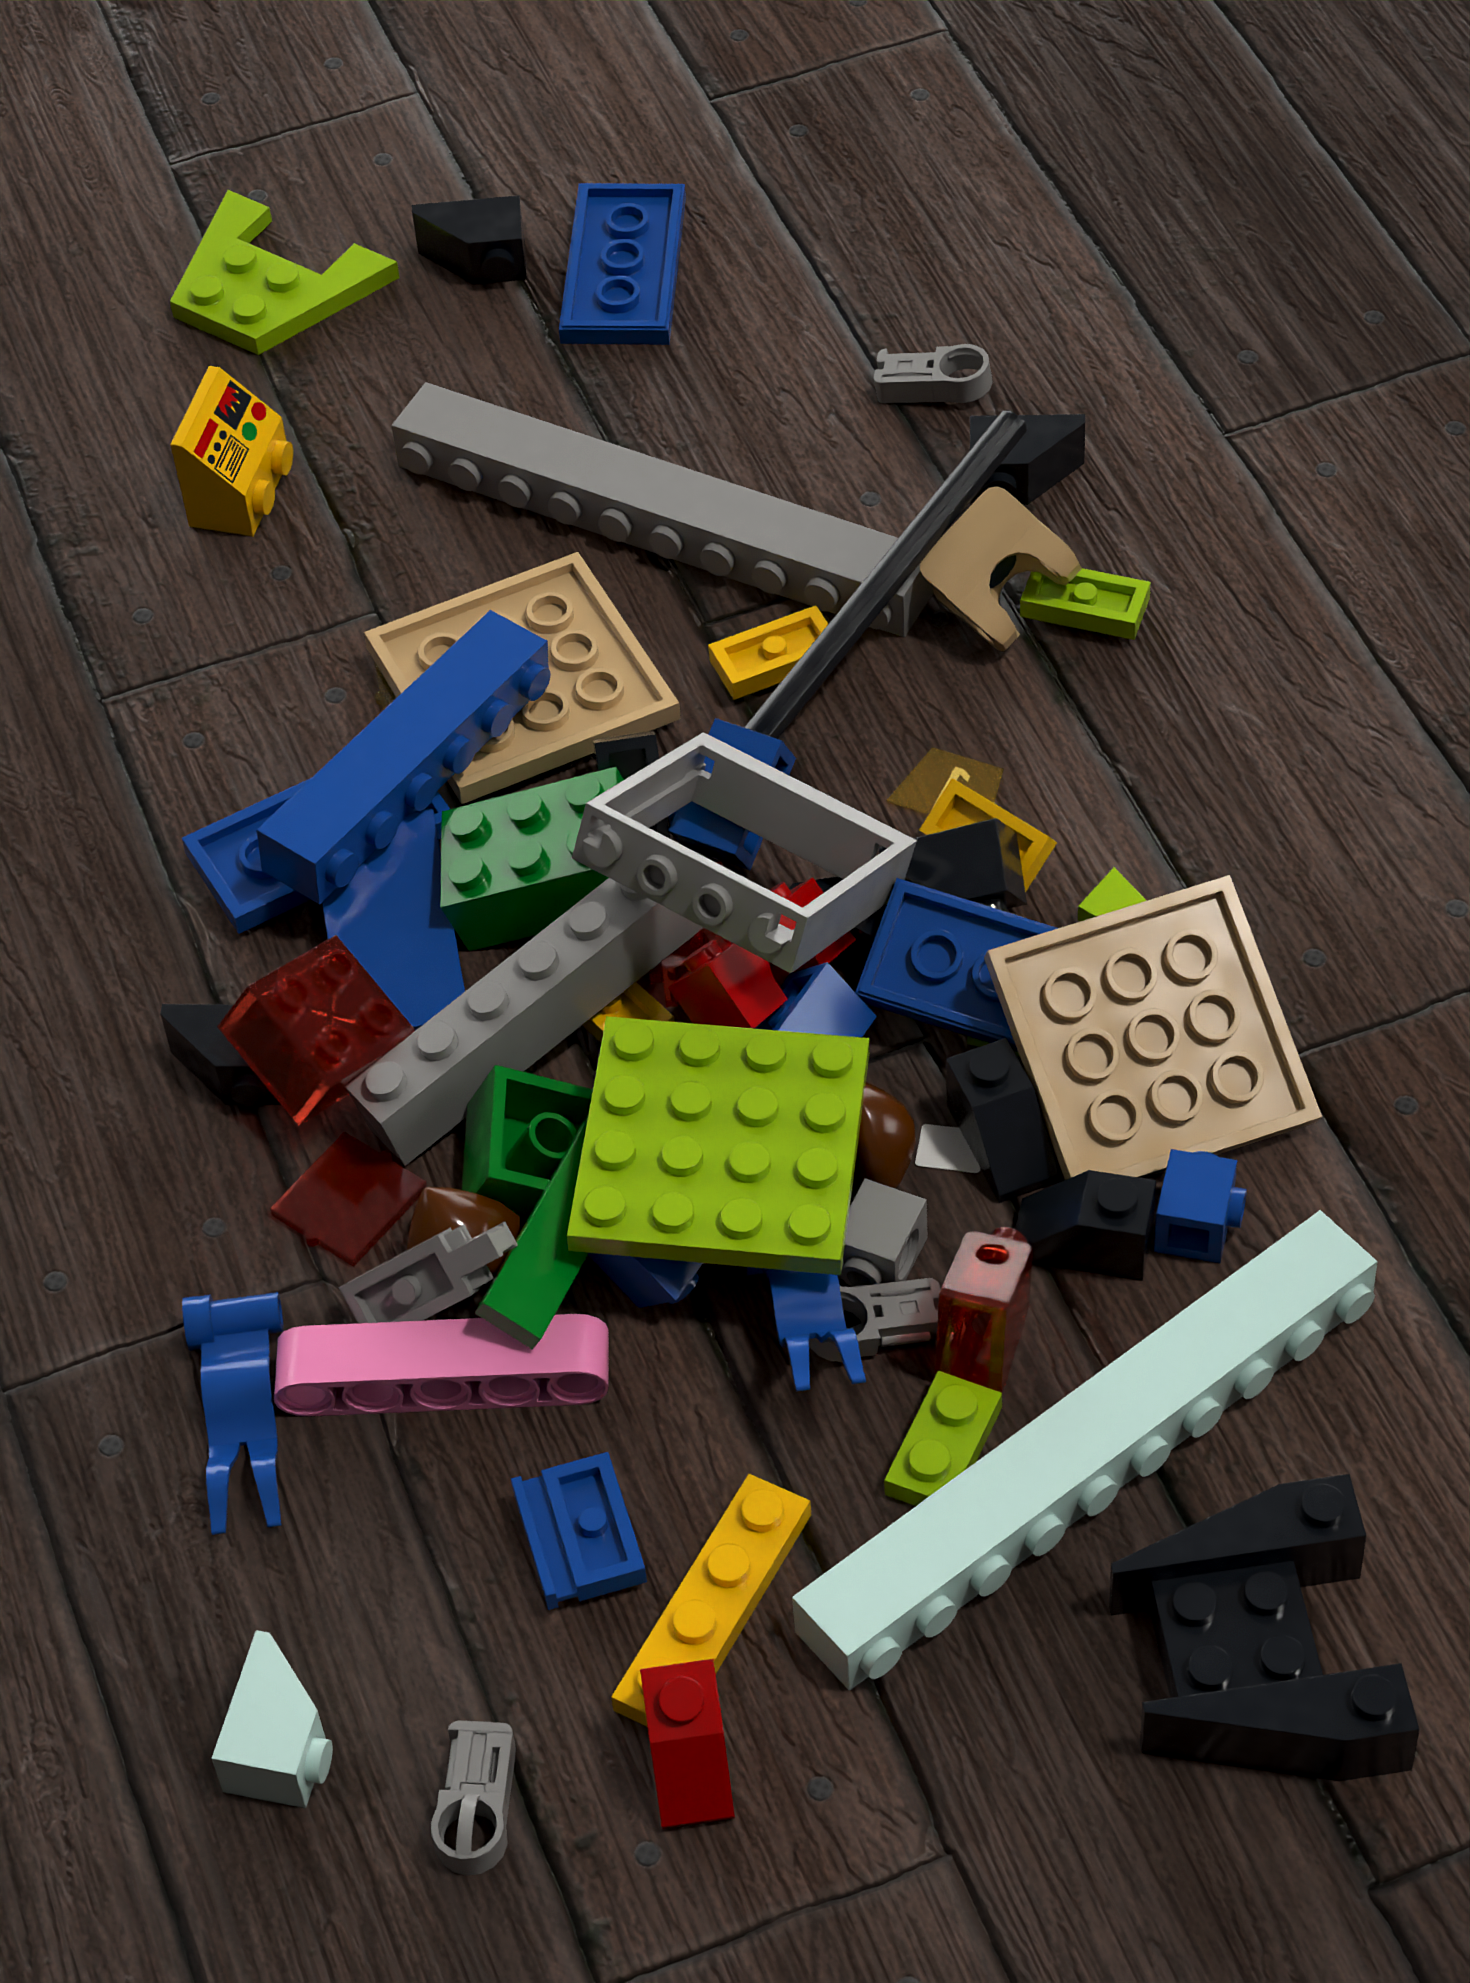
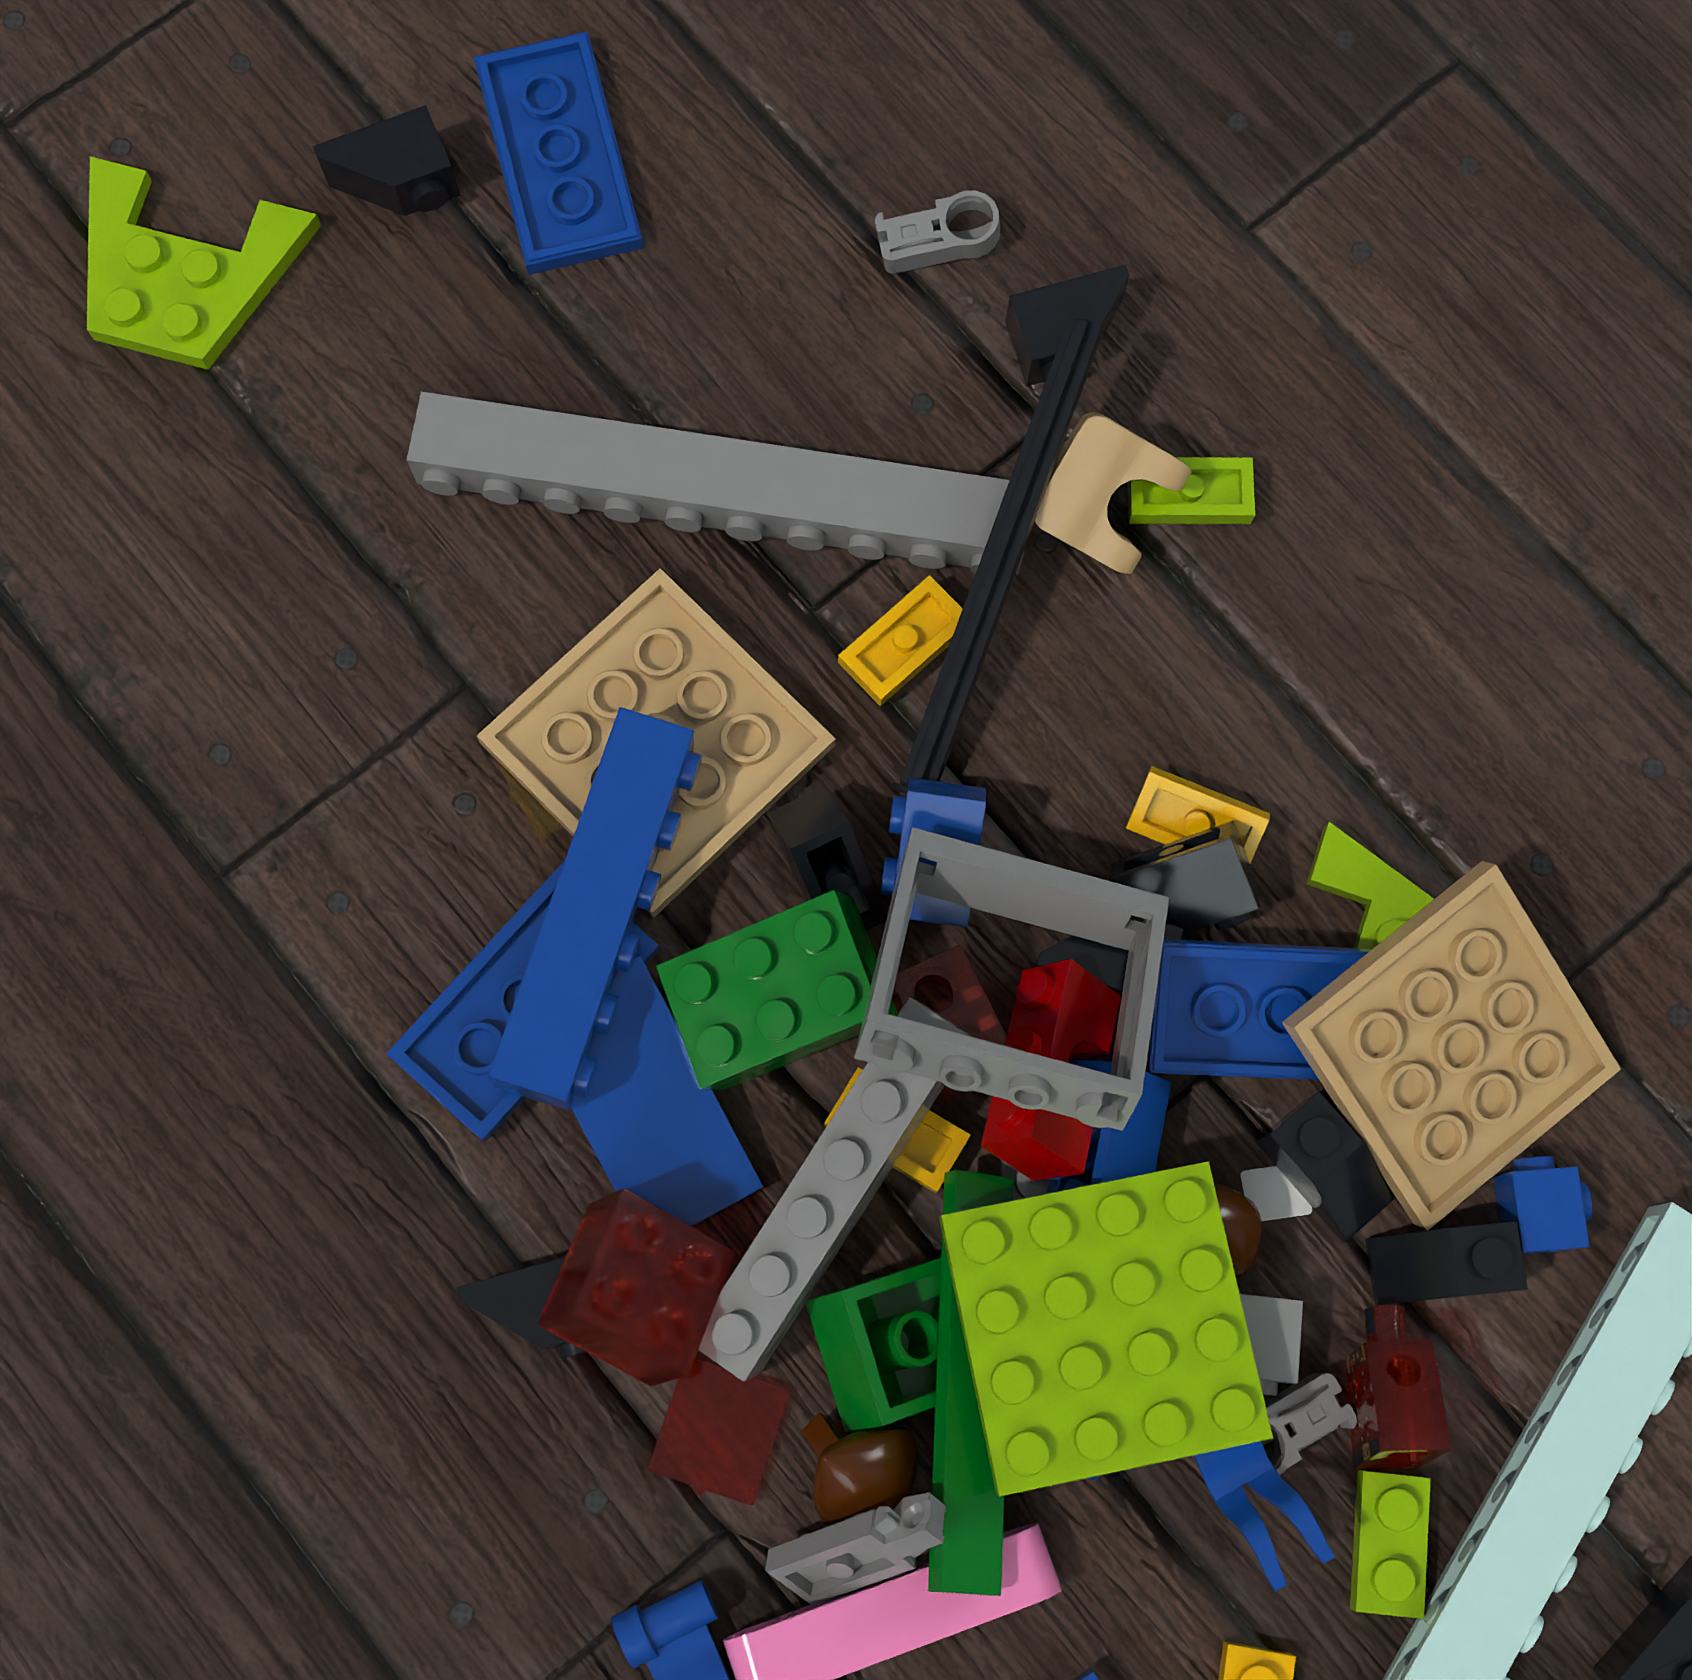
camera: 25 degrees left, 25 degrees up
(229, 456) = (245, 542): yellow slope -> none
(933, 773) = (1123, 749): clear yellow sticker -> none

